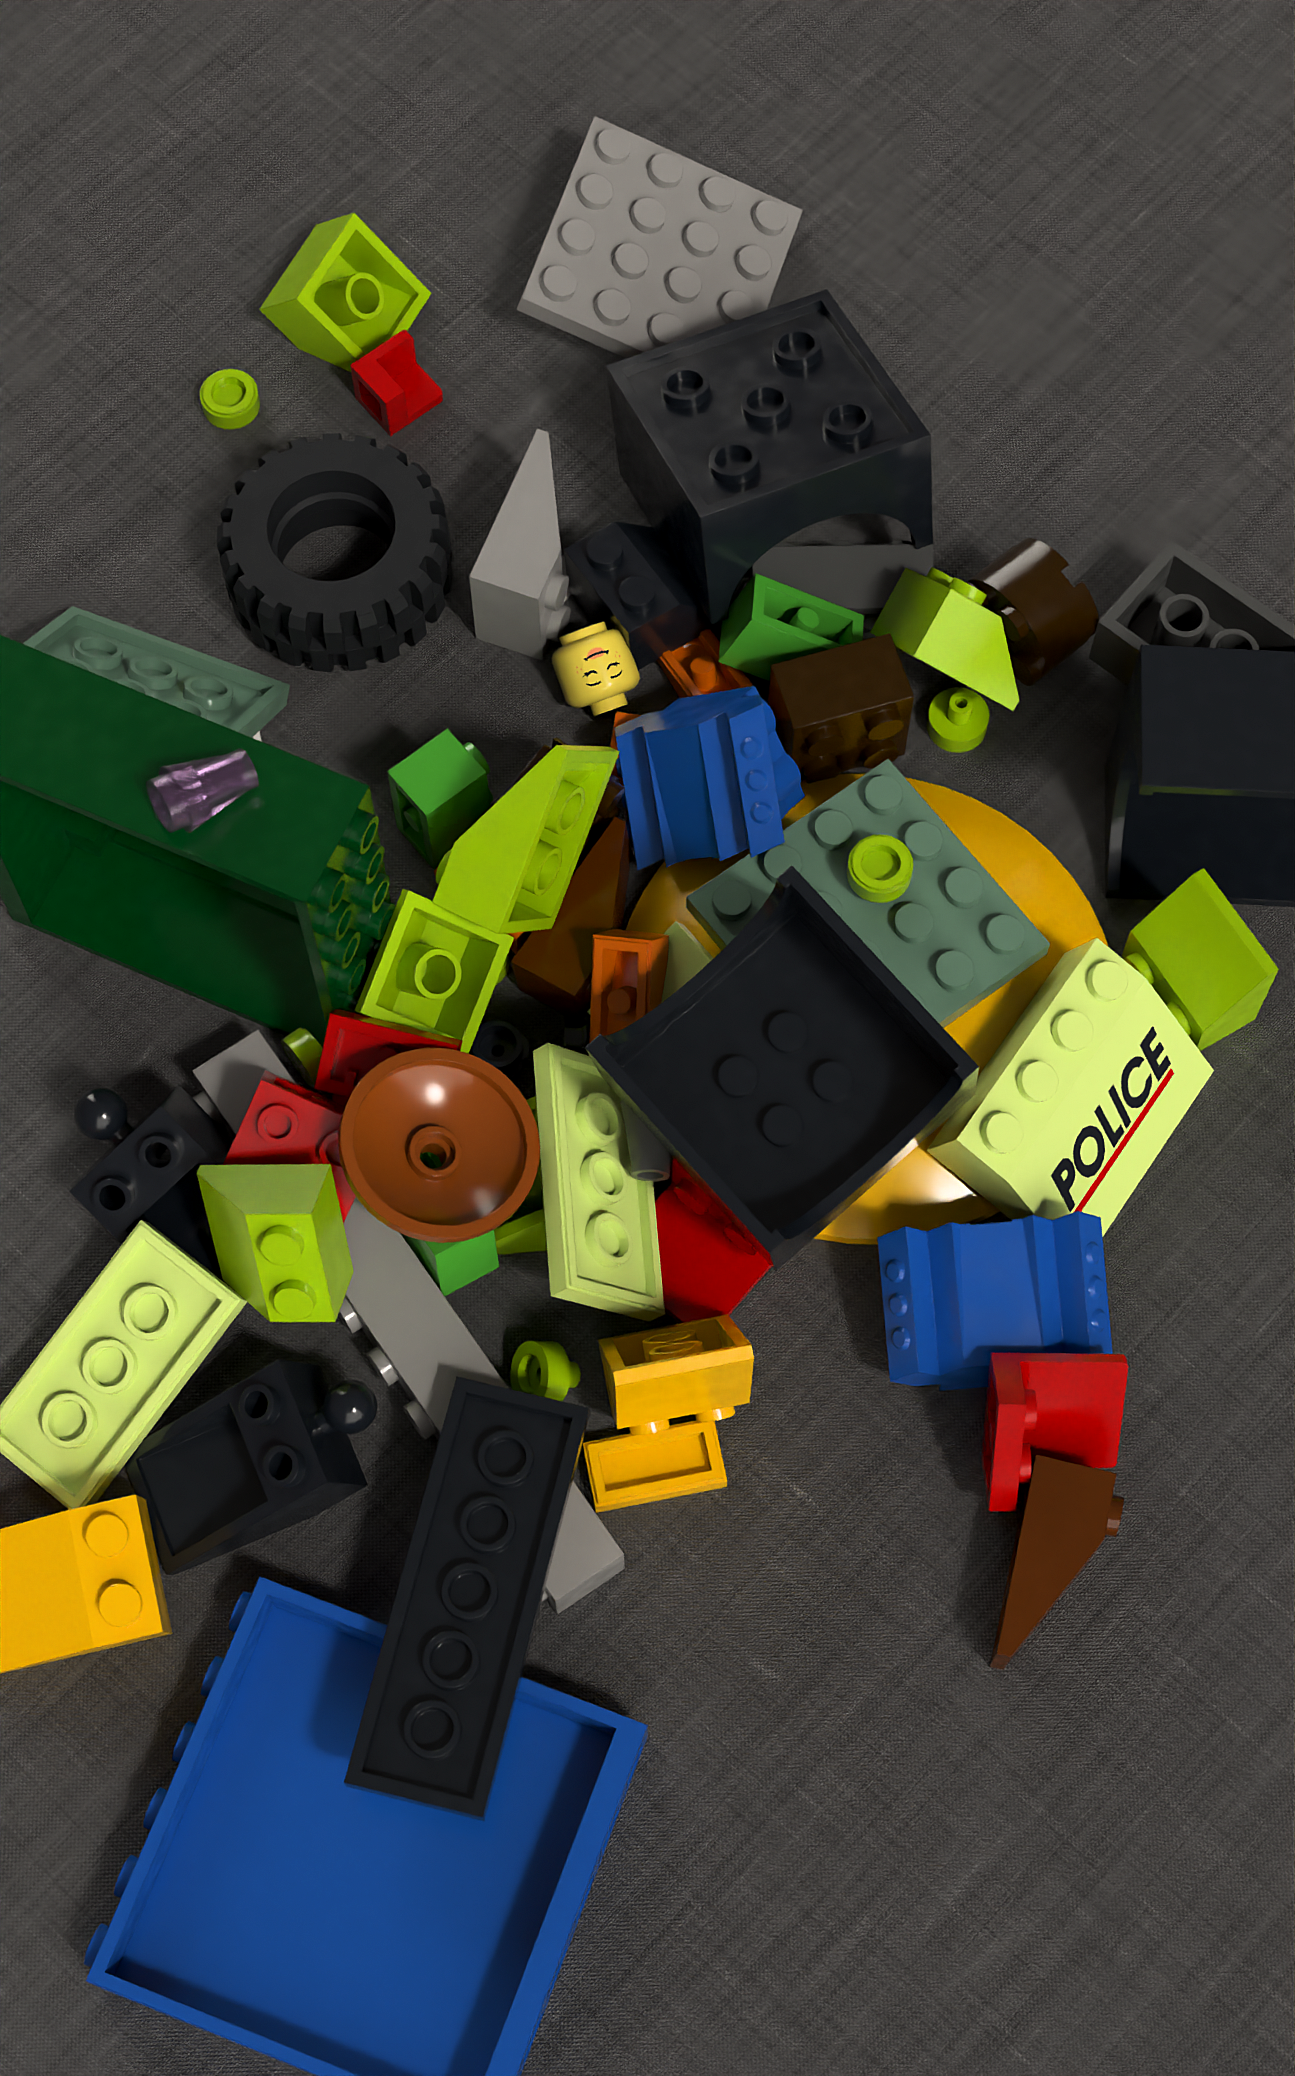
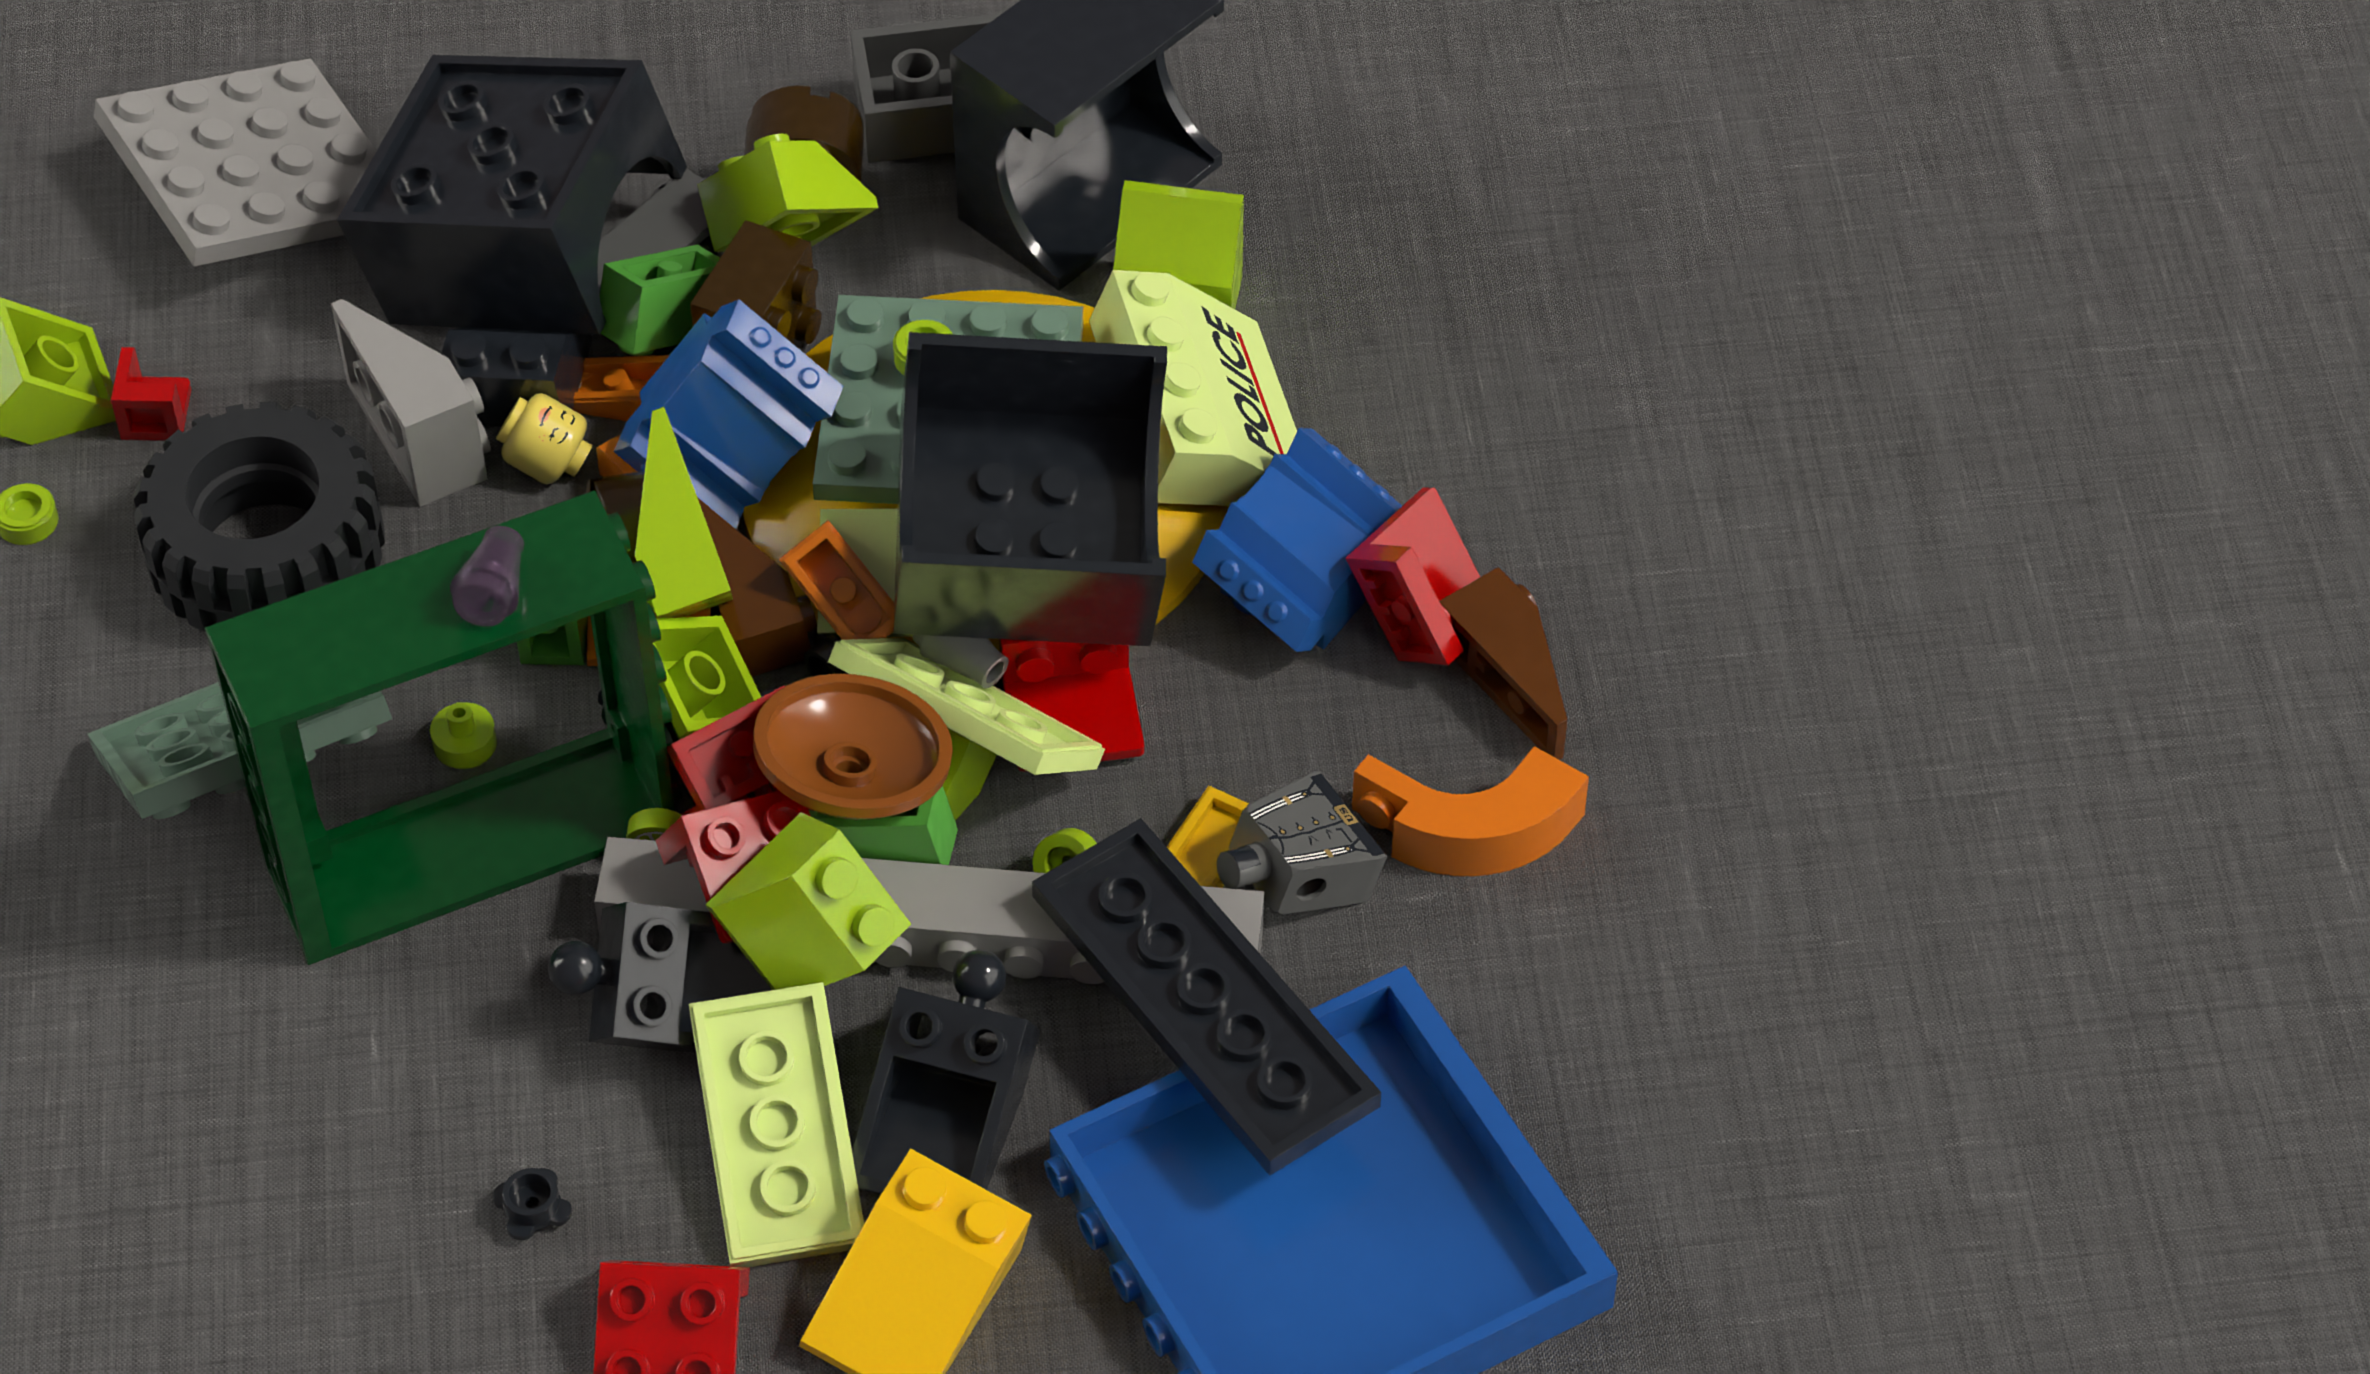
camera: 50 degrees left, 15 degrees down
(676, 1373) = (1167, 755): yellow slope -> none
(699, 1544) = (1302, 849): none -> dark grey torso
(866, 1683) = (1477, 830): none -> orange arch
(957, 720) = (836, 267): lime tile -> none

